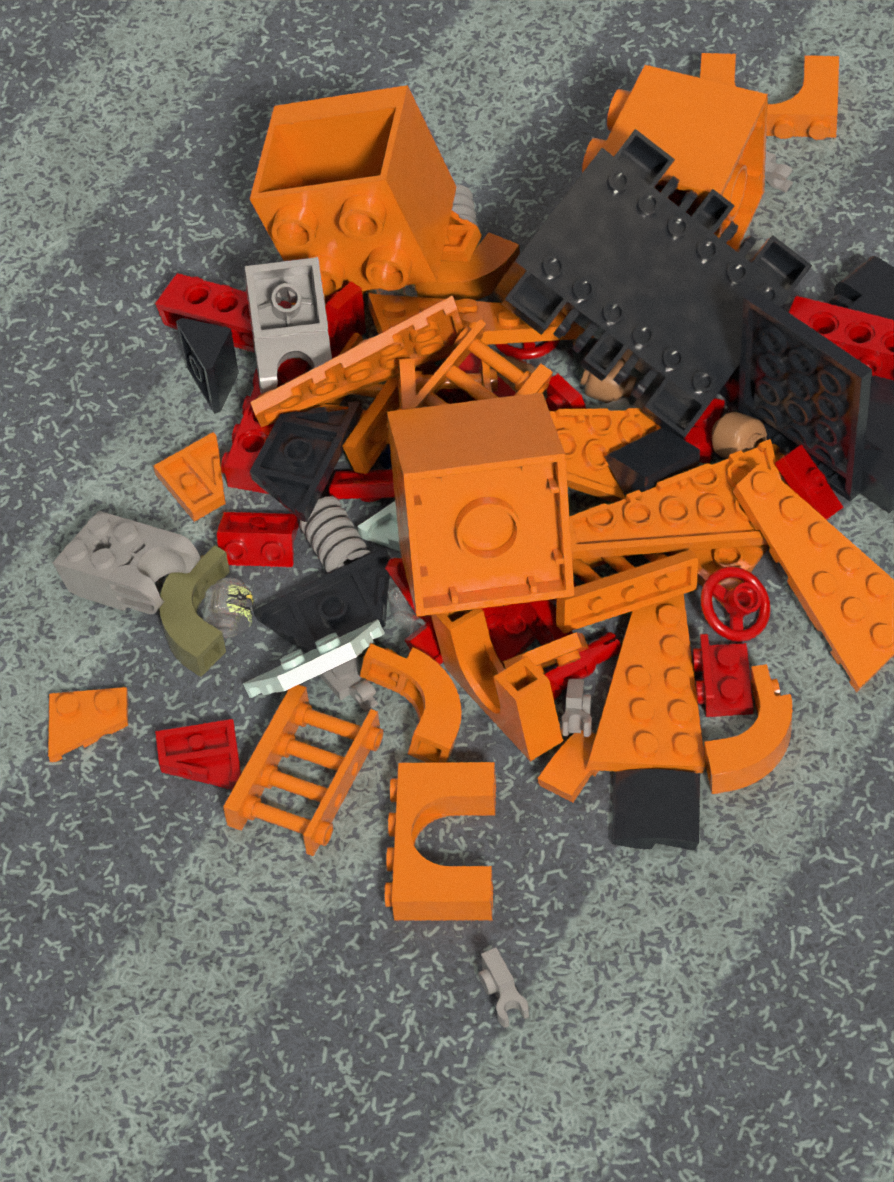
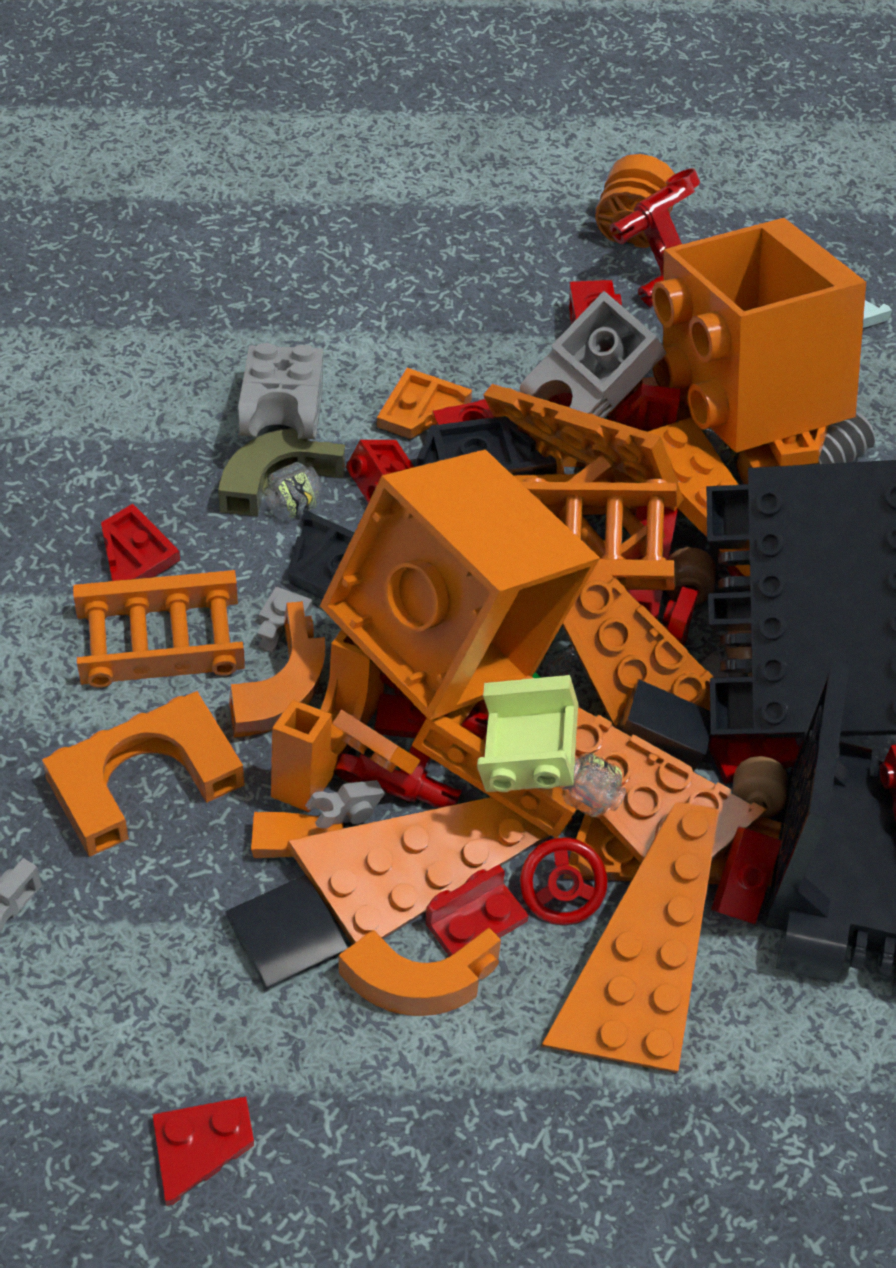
camera: 50 degrees right, 0 degrees up
(84, 717) = (123, 452): orange wing -> none
(101, 210) = (628, 183): none -> orange wheel
(153, 205) = (654, 219): none -> red connector
(209, 359) = (530, 342): black slope -> none
(301, 667) = (262, 572): light aqua wing -> none
(631, 539) = (529, 734): none -> yellowish green panel
(689, 528) = (595, 786): none -> clear head
(802, 949) = (199, 1141): none -> red wing

